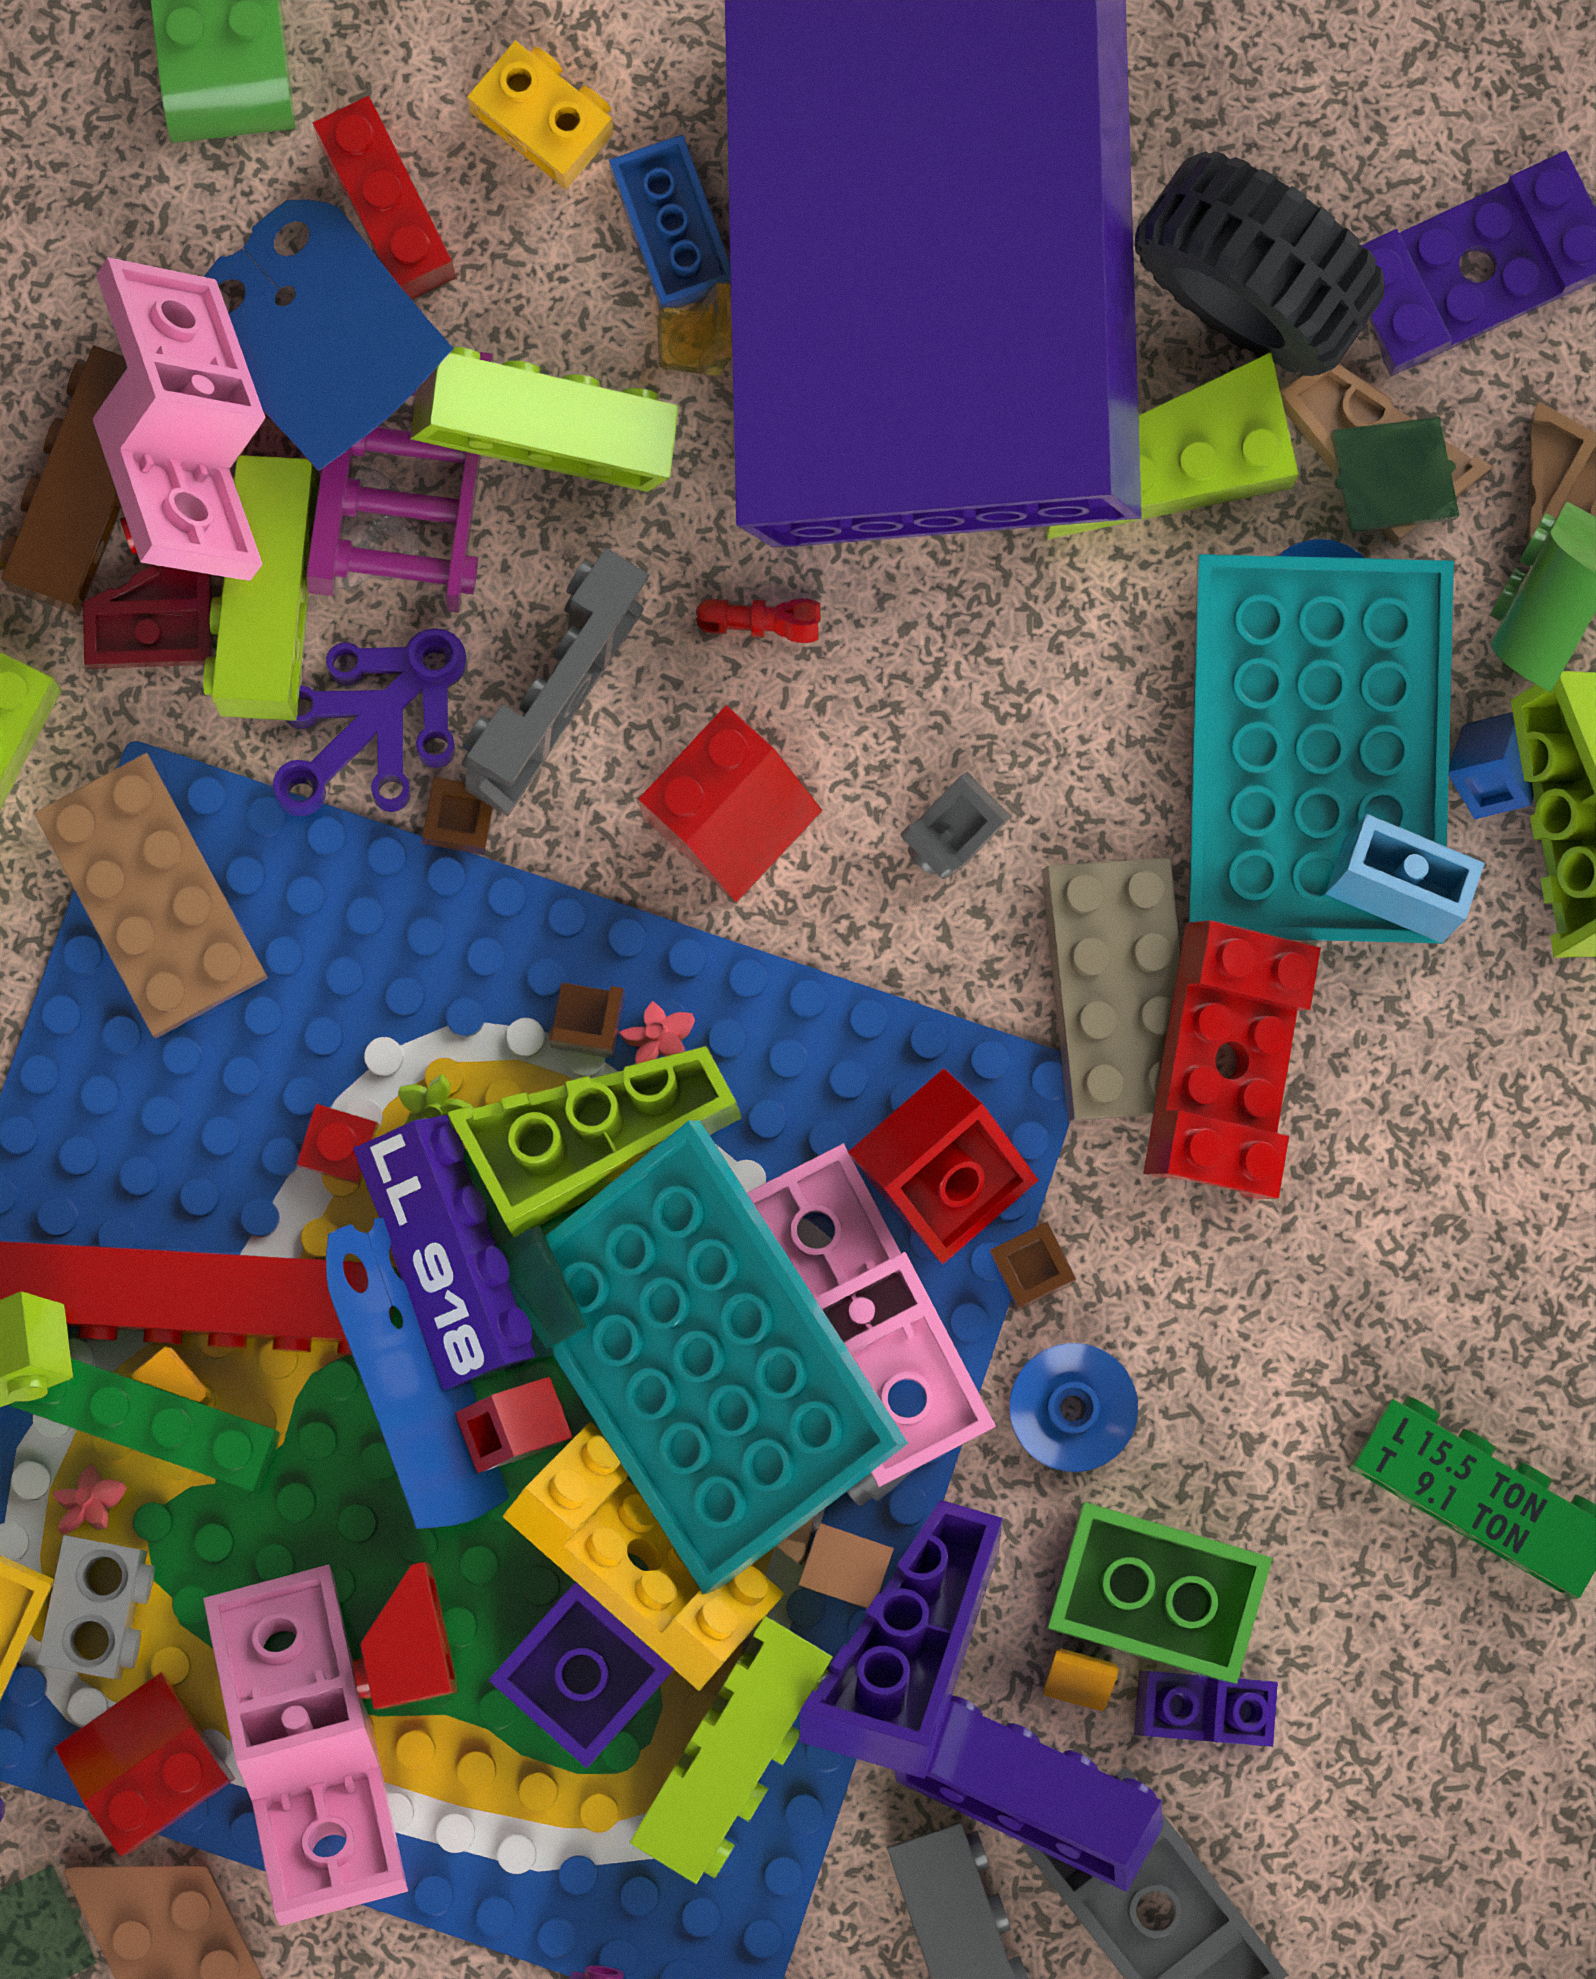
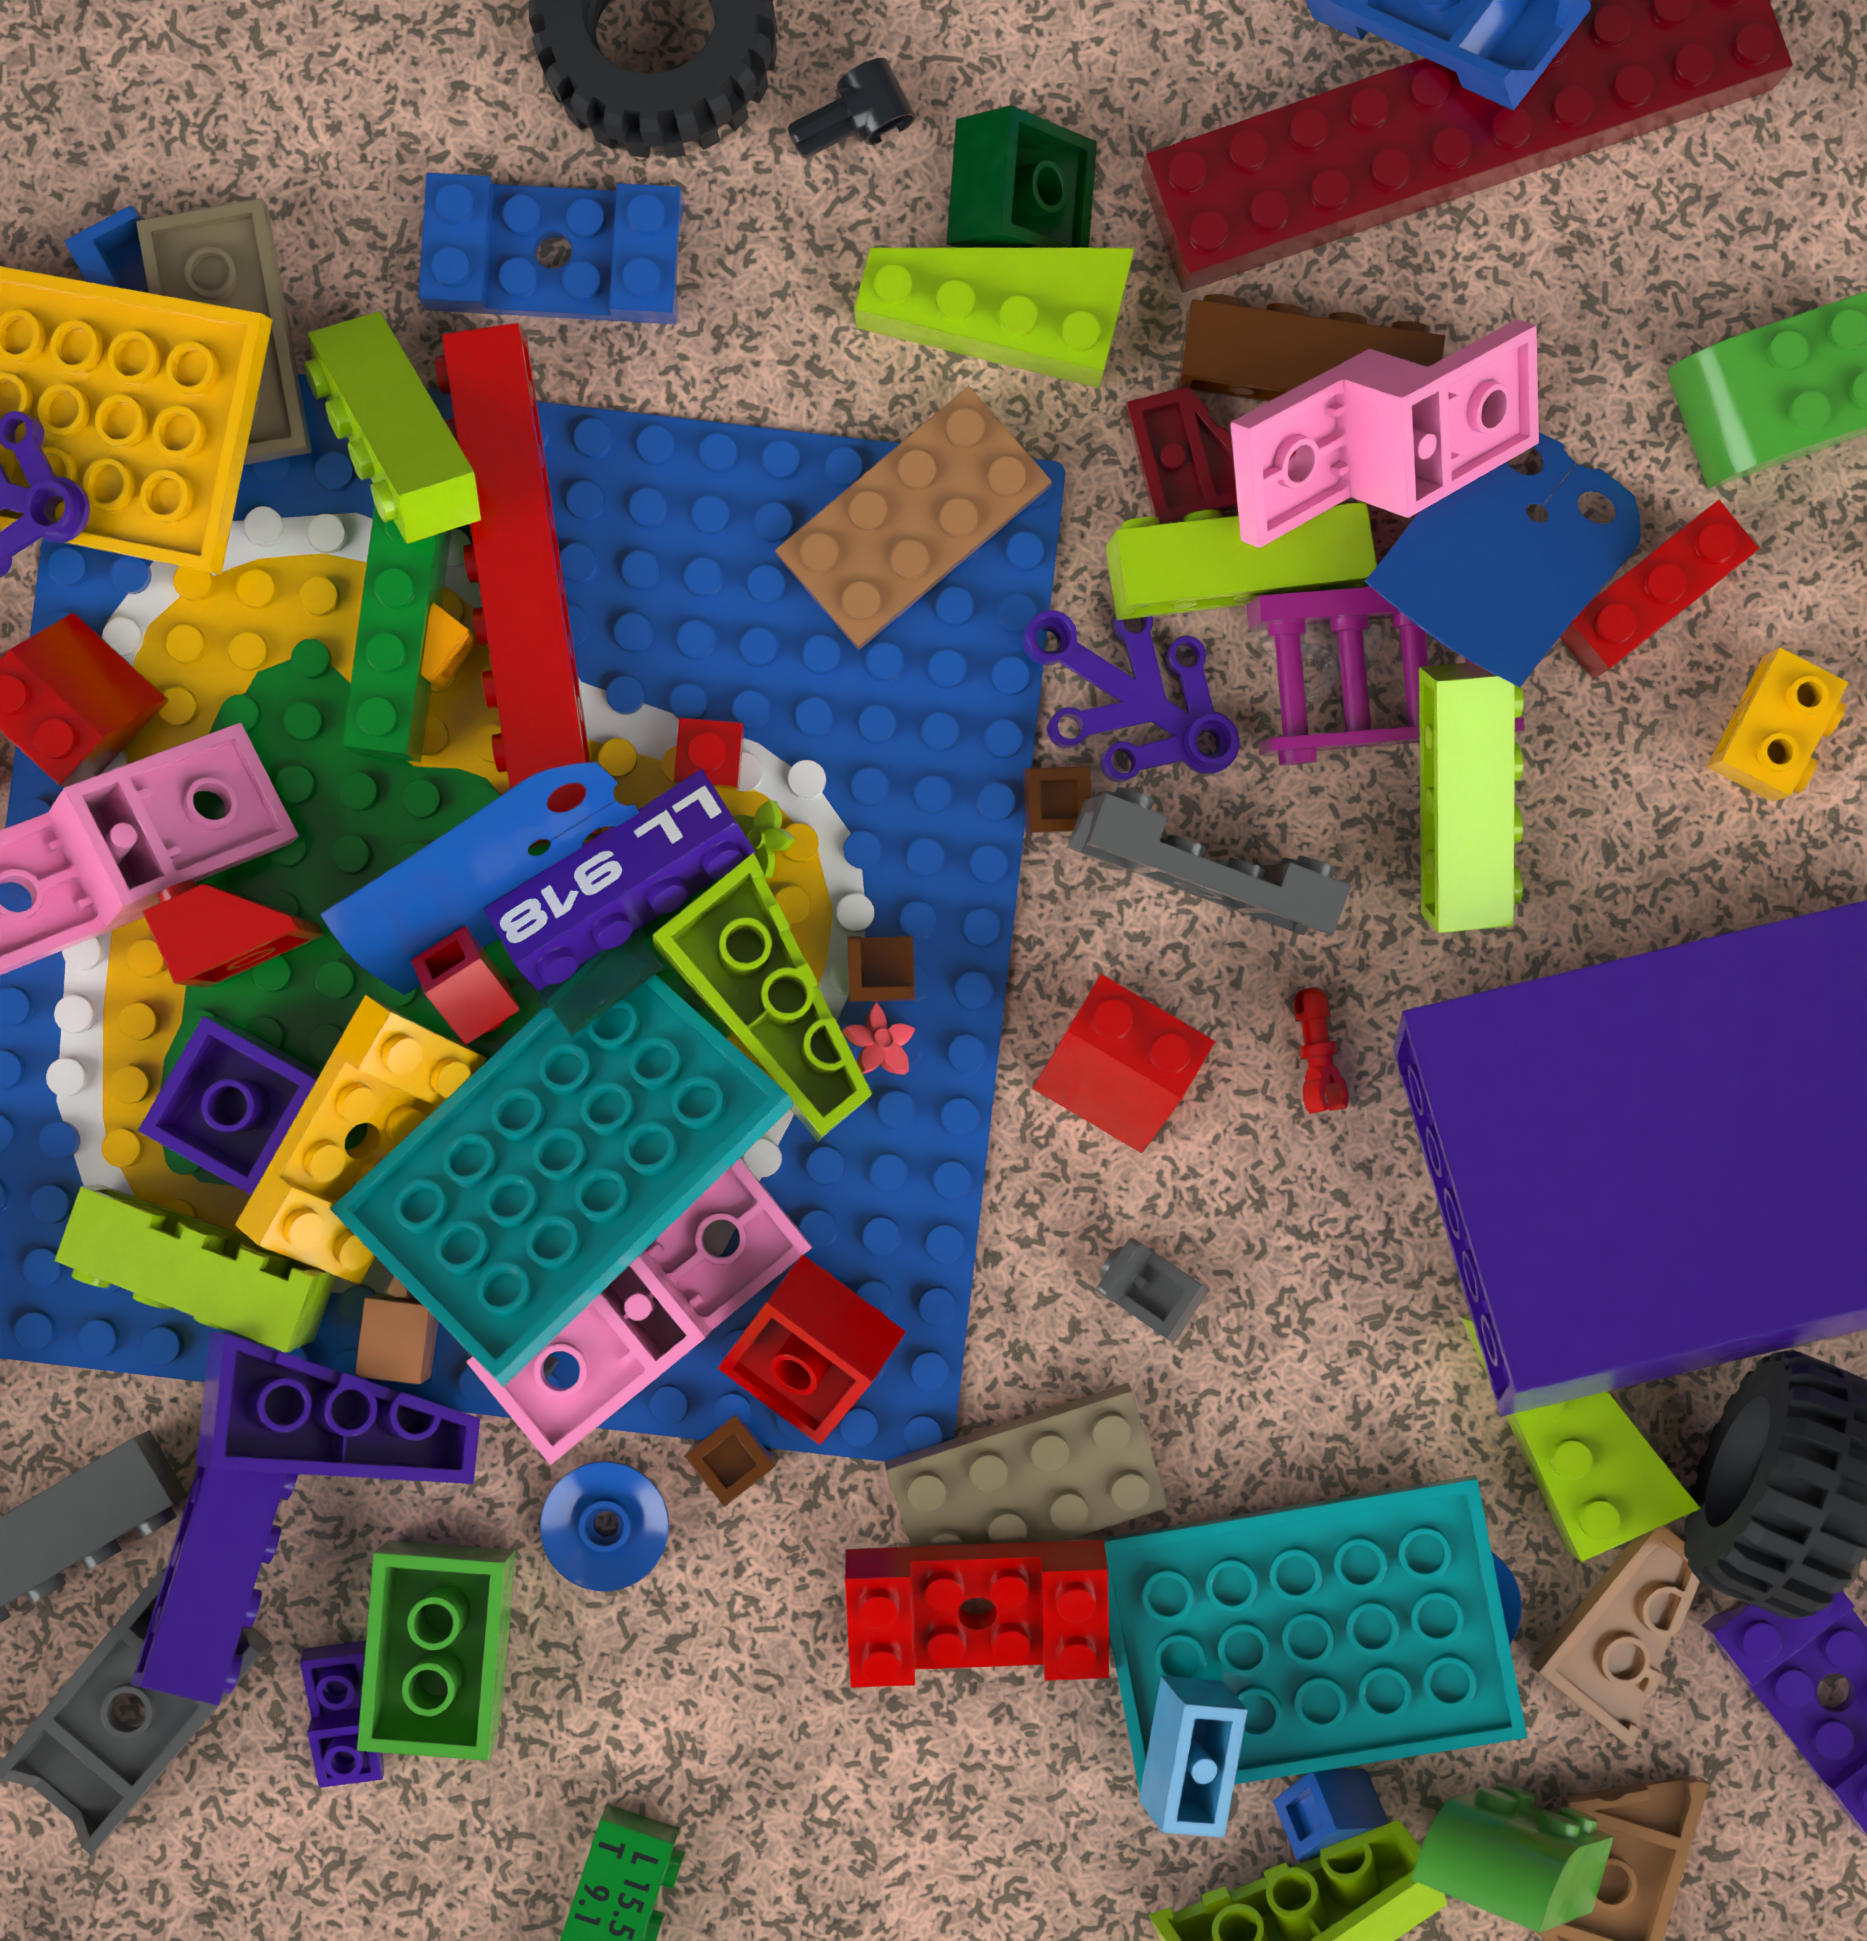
camera: 80 degrees right, 5 degrees up
(76, 1604) = (210, 605): light grey brick -> none
(88, 1500) = (312, 591): coral plant -> none
(671, 222) = (1696, 879): blue piece -> none
(697, 339) = (1585, 931): clear yellow bracket -> none
(1080, 1679) = (347, 1586): light orange slope -> none
(1395, 474) = (1602, 1655): clear green piece -> none

